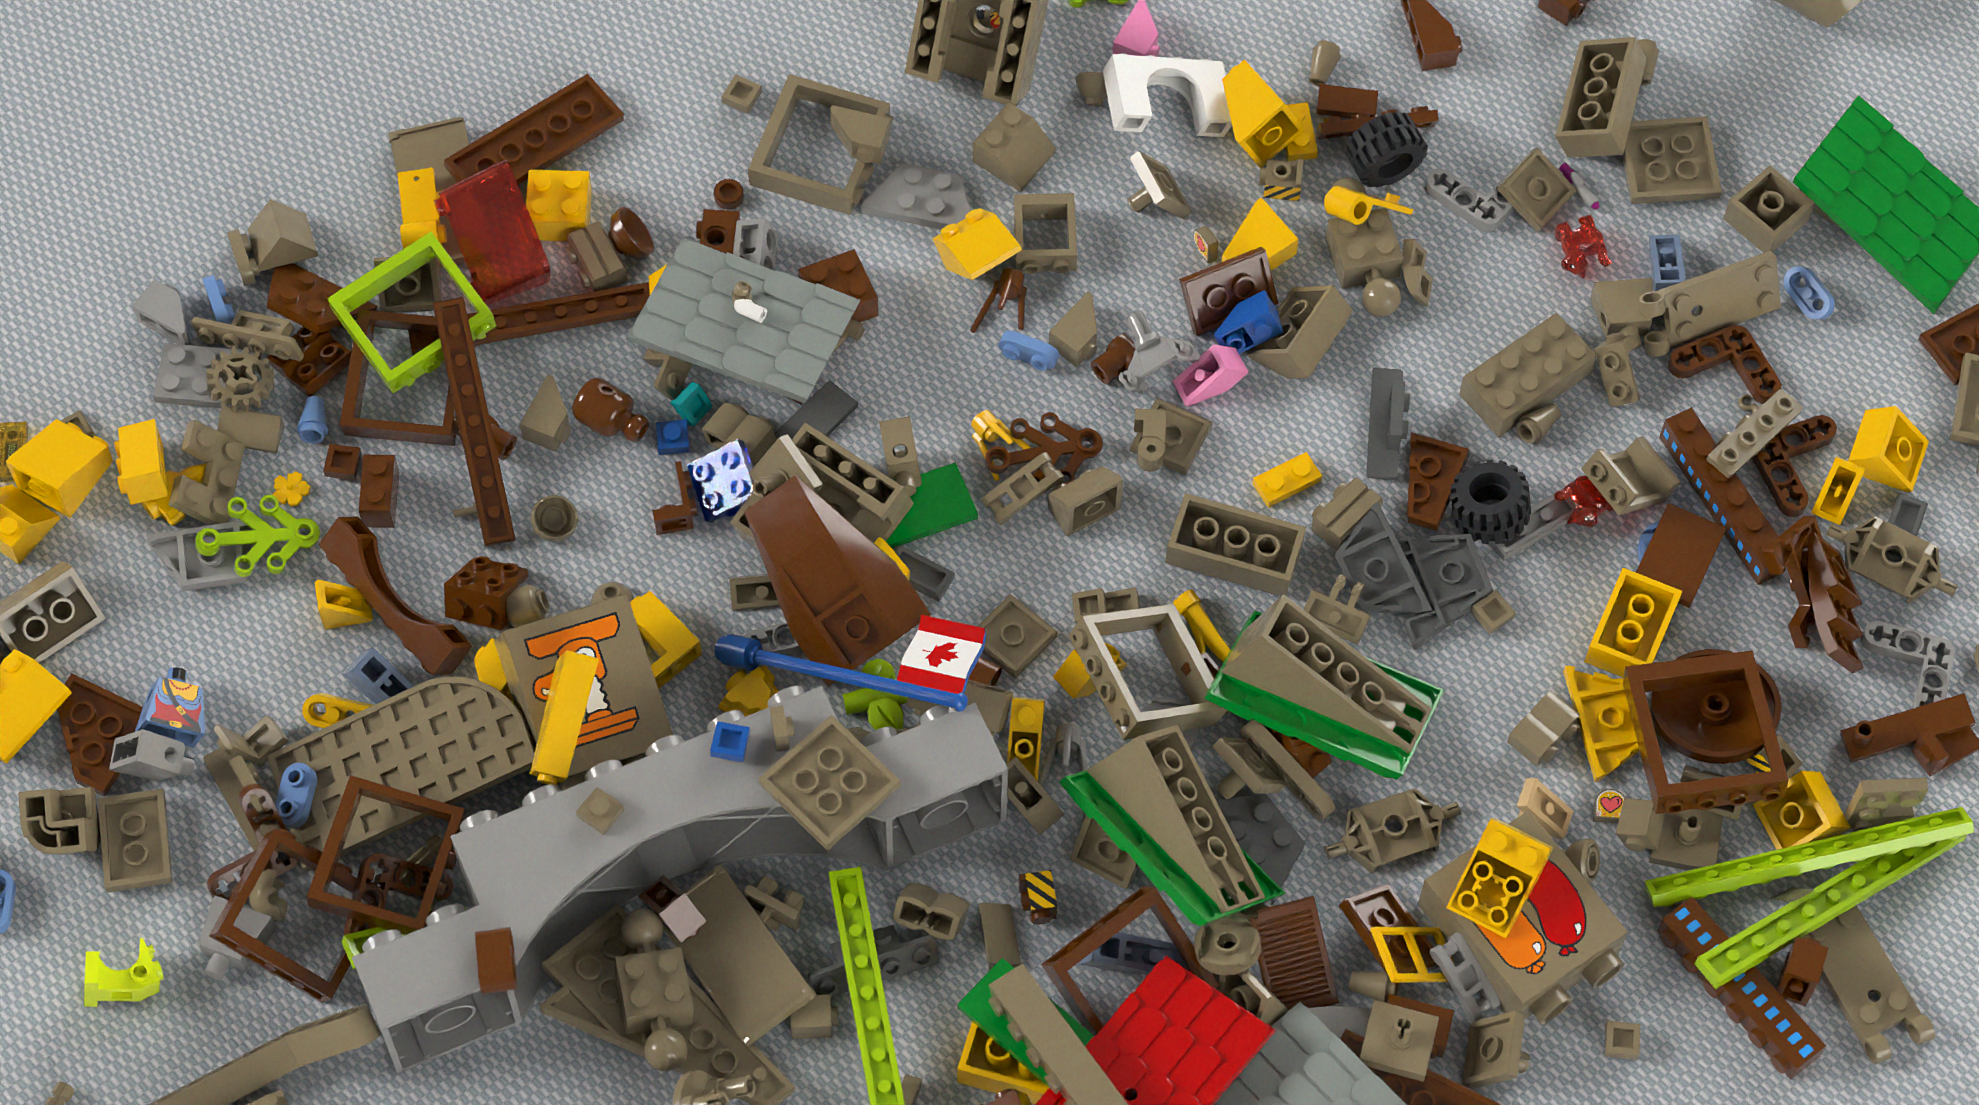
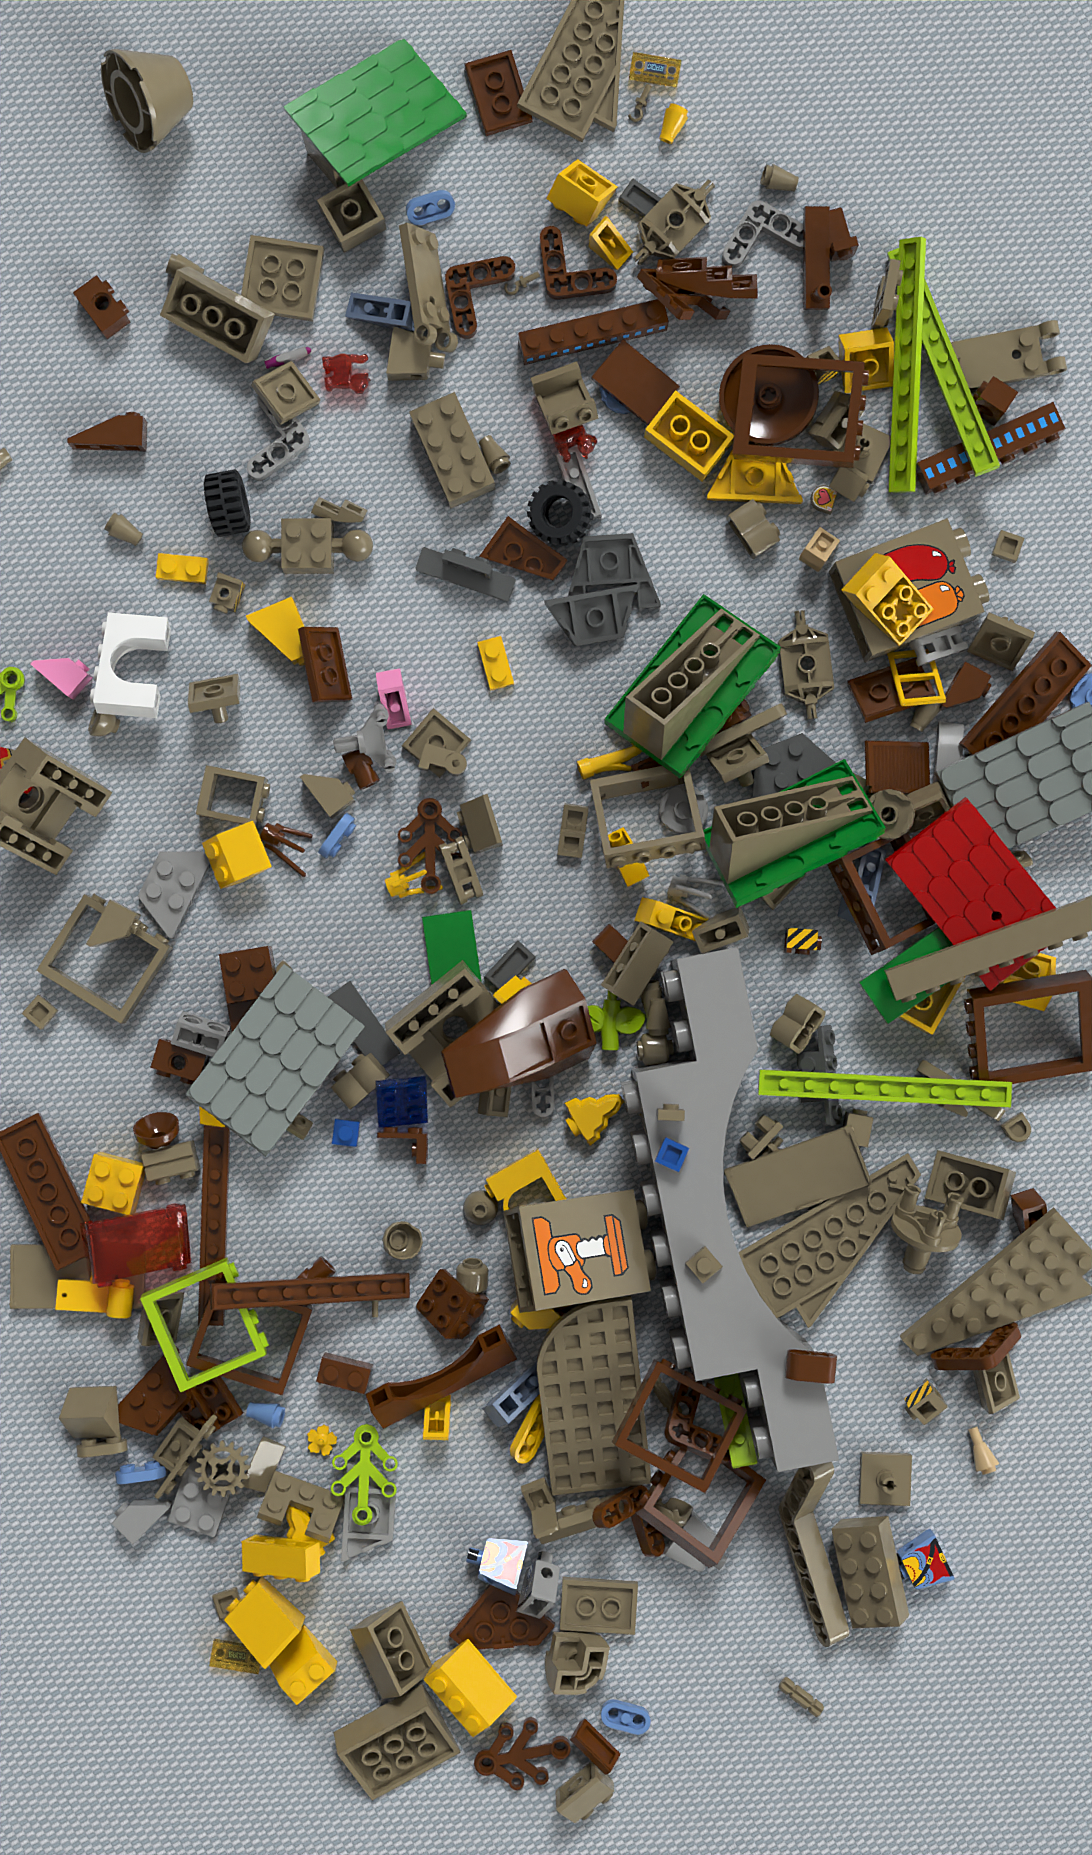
camera: 80 degrees left, 25 degrees up
(121, 985) = (715, 1649): neon yellow tile -> none
(296, 794) = (597, 1480): medium blue plate -> none
(342, 462) = (309, 1396): reddish brown plate -> none
(546, 418) = (307, 1227): dark tan slope -> none
(563, 716) = (612, 1275): yellow slope -> none
(608, 410) = (316, 1180): reddish brown piece -> none
(654, 990) = (820, 1243): dark tan brick -> none
(673, 908) = (755, 1215): slope -> none
(692, 404) = (323, 1112): teal tile -> none
(728, 194) = (131, 1042): reddish brown tile -> none
(744, 303) = (265, 1057): white arm -> none
(780, 465) = (424, 1059): dark tan tile -> none
(829, 782) = (723, 1086): dark tan plate -> none
(901, 465) = (409, 960): dark tan torso -> none
(930, 671) = (627, 980): flag -> none
(998, 933) = (822, 976): dark tan slope -> none
(1013, 147) = (146, 802): dark tan slope -> none
(1015, 636) = (580, 908): dark tan tile -> none
(1206, 243) = (271, 670): dark tan tile -> none
(1235, 545) = (550, 718): dark tan brick -> none
(1250, 323) = (357, 655): blue slope -> none
(1258, 115) = (167, 597): yellow slope -> none
(1309, 325) = (370, 617): dark tan slope -> none
(1335, 127) = (192, 512): reddish brown plate -> none
(1336, 615) = (624, 658): dark tan hinge -> none
(1343, 513) = (539, 626): dark tan brick -> none
(1346, 101) = (164, 520): reddish brown tile -> none
(1356, 205) = (275, 542): yellow door -> none
(1398, 1040) = (983, 709): dark tan tile -> none
(1493, 612) = (648, 538): dark tan plate -> none
(1585, 857) = (865, 534): dark tan brick -> none
(1617, 368) = (462, 379): dark tan bracket -> none
(1754, 433) = (551, 293): dark tan bracket -> none
(1792, 894) = (932, 387): olive sticker -> none

